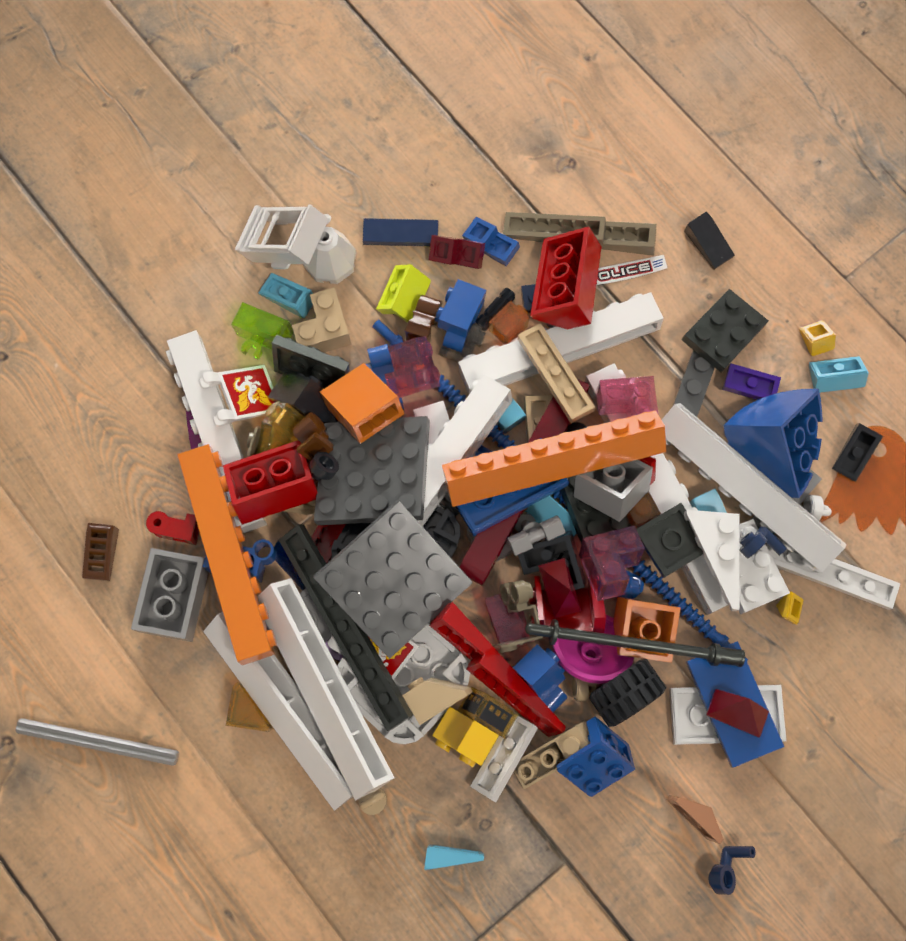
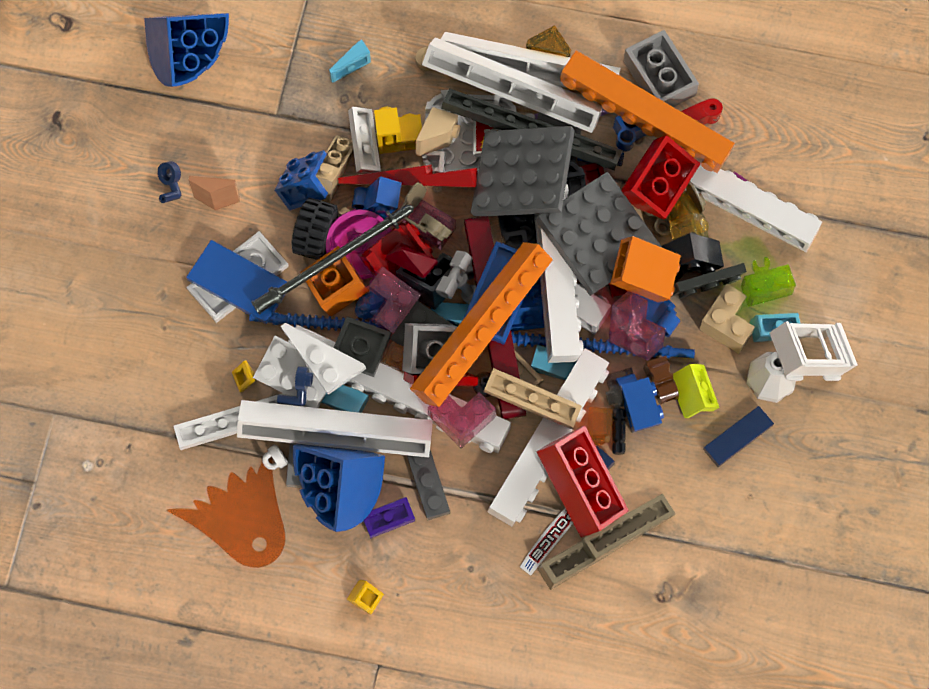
camera: 140 degrees right, 5 degrees down
(89, 552) = (738, 83): reddish brown slope -> none
(244, 391) = (737, 231): flag -> none
(312, 435) = (663, 227): reddish brown leg -> none
(323, 466) = (631, 205): black tile -> none
(456, 251) = (687, 449): dark red slope -> none
(488, 712) = (395, 156): slope -> none
(497, 245) = (666, 482): blue slope -> none
(709, 240) = (503, 610): black slope -> none
(725, 330) = (438, 542): pearl dark grey plate -> none
(737, 712) = (232, 273): dark red slope -> none
(838, 374) = (330, 578): medium azure slope -> none
(857, 451) = (274, 527): black slope -> none

